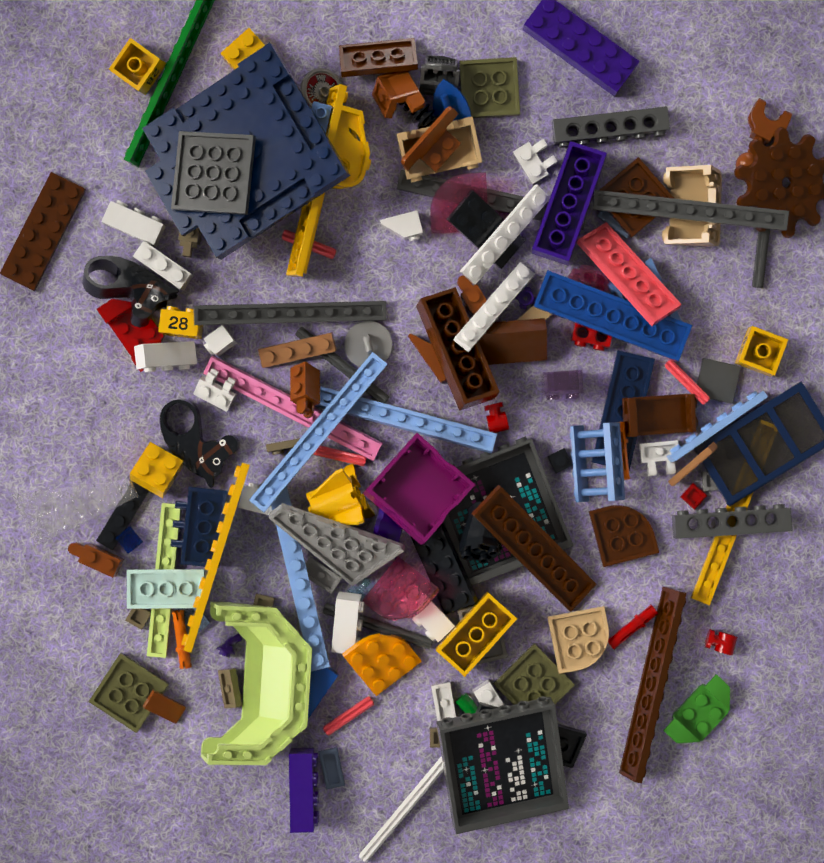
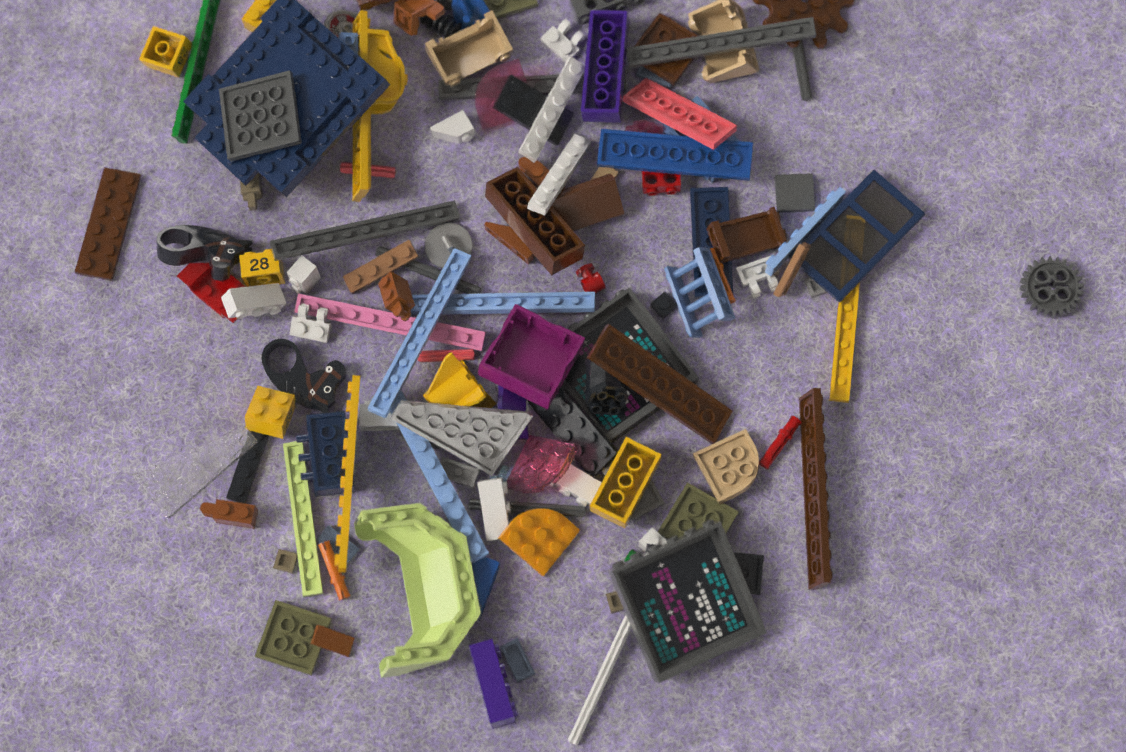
camera: 10 degrees left, 15 degrees down
(129, 539) = (258, 488): clear blue plate -> none
(133, 223) = (194, 192): white brick -> none
(163, 266) = (232, 223): white brick -> none
(163, 588) = (303, 522): light aqua plate -> none
(226, 649) = (381, 569): dark purple plate -> none
(230, 688) = (394, 606): dark tan plate -> none
(277, 448) = (384, 361): dark tan plate -> none
(348, 715) = (520, 603): coral axle -> none
(435, 144) = (463, 44): dark orange plate -> none
(443, 700) = (608, 556): white plate -> none
(530, 298) = (588, 159): dark purple plate -> none
(562, 384) = (644, 230): clear purple brick -> none
(622, 534) = (744, 357): reddish brown plate -> none
(687, 382) = (765, 199): coral axle -> none
(693, 496) = (803, 304): red tile -> none
(700, 712) = (872, 504): bright green piece -> none
(723, 642) = (873, 433): red piece -> none
(761, 351) = (827, 152): yellow brick -> none
(781, 523) = (889, 292): dark grey brick -> none

